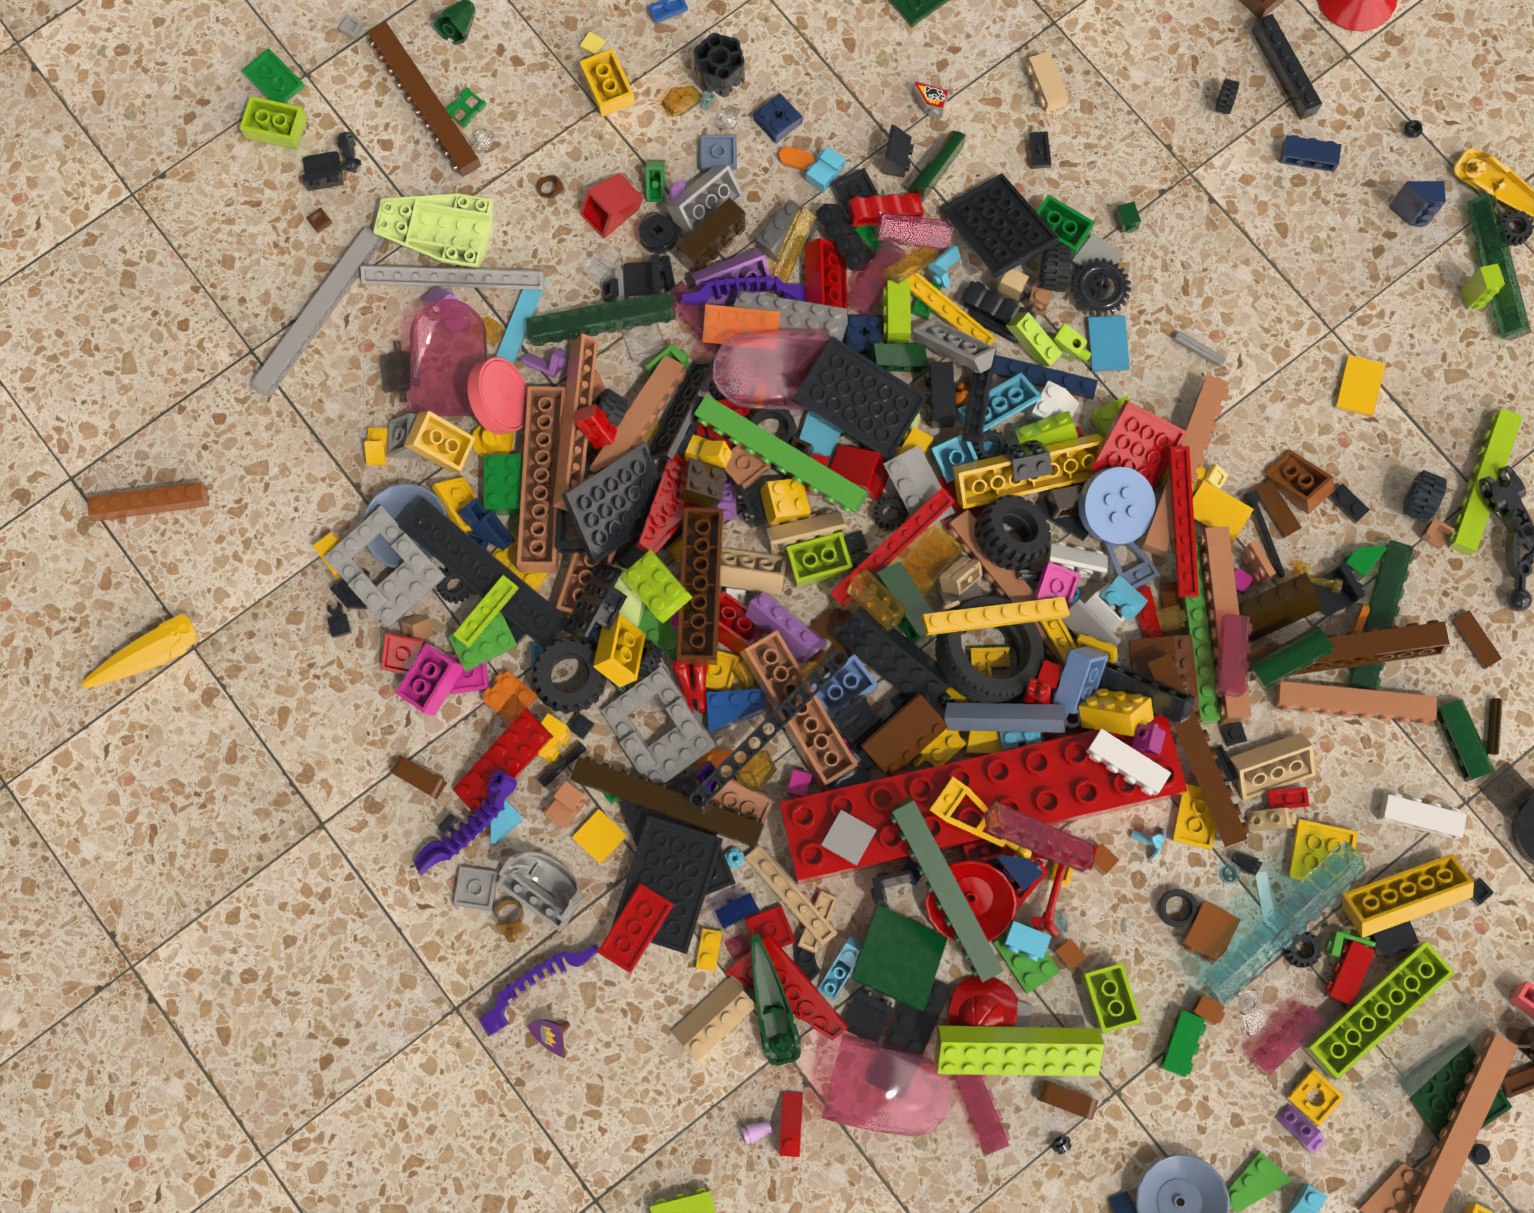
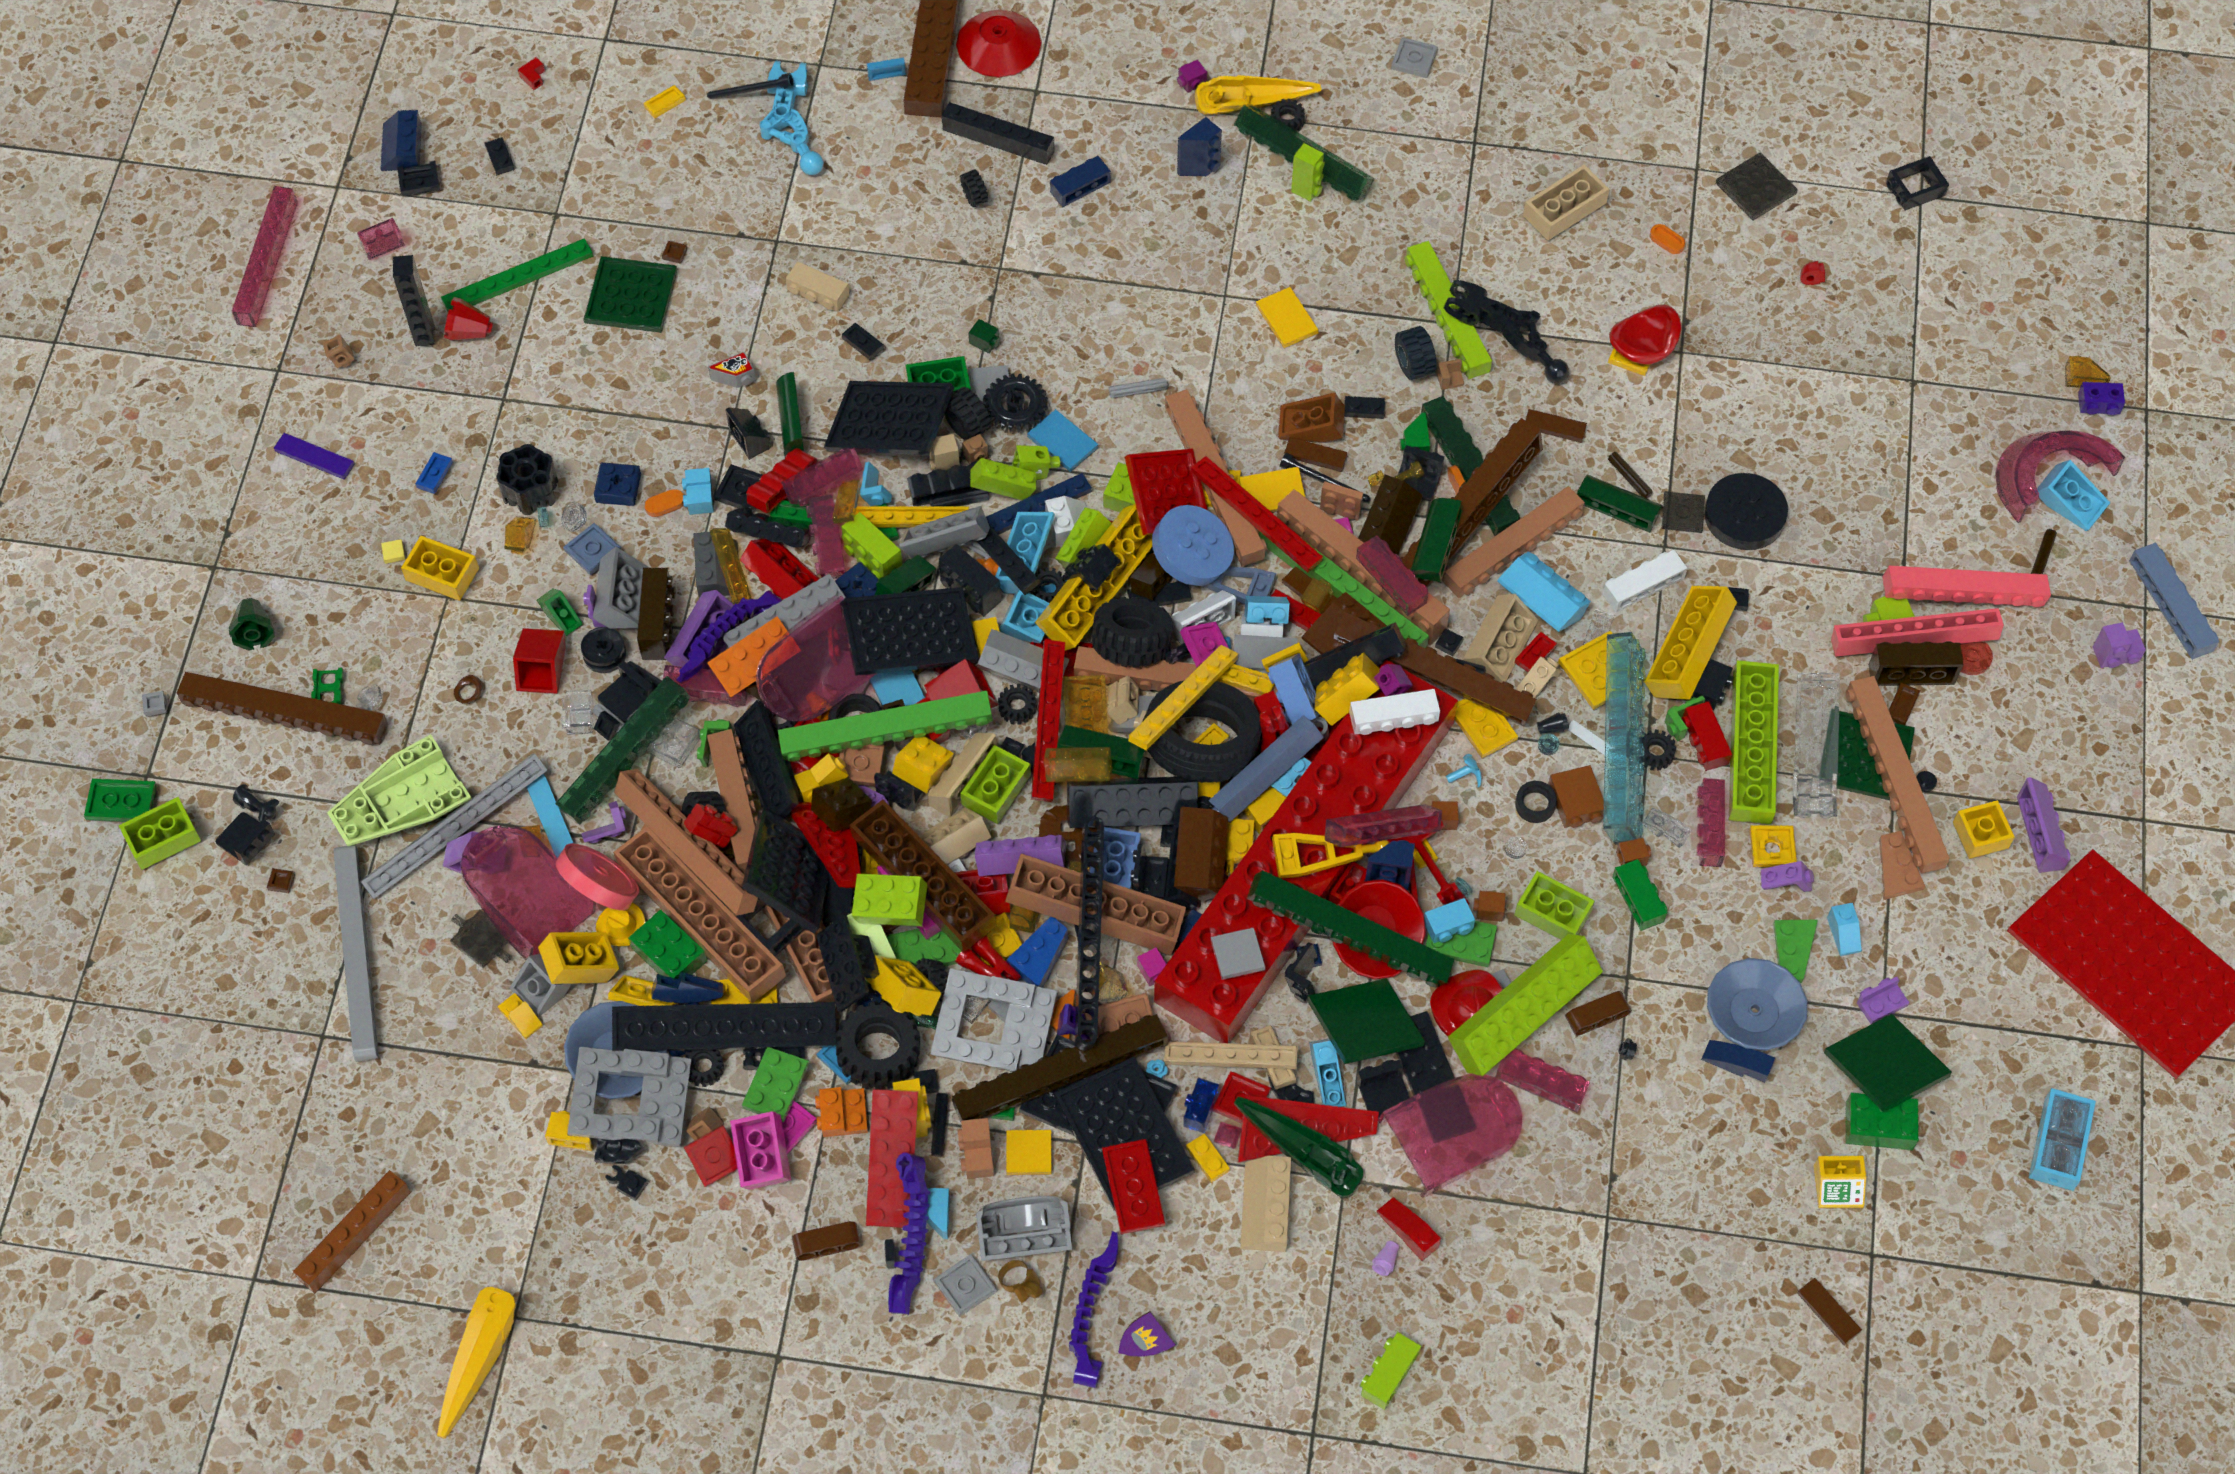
camera: 45 degrees left, 15 degrees down
(486, 611) = (757, 1052): lime plate -> none
(1216, 476) = (1244, 467): light yellow tile -> none
(1337, 760) = (1544, 591): none -> medium azure slope
(1414, 124) = (1140, 101): black plate -> none
(1474, 136) = (1191, 75): none -> magenta brick

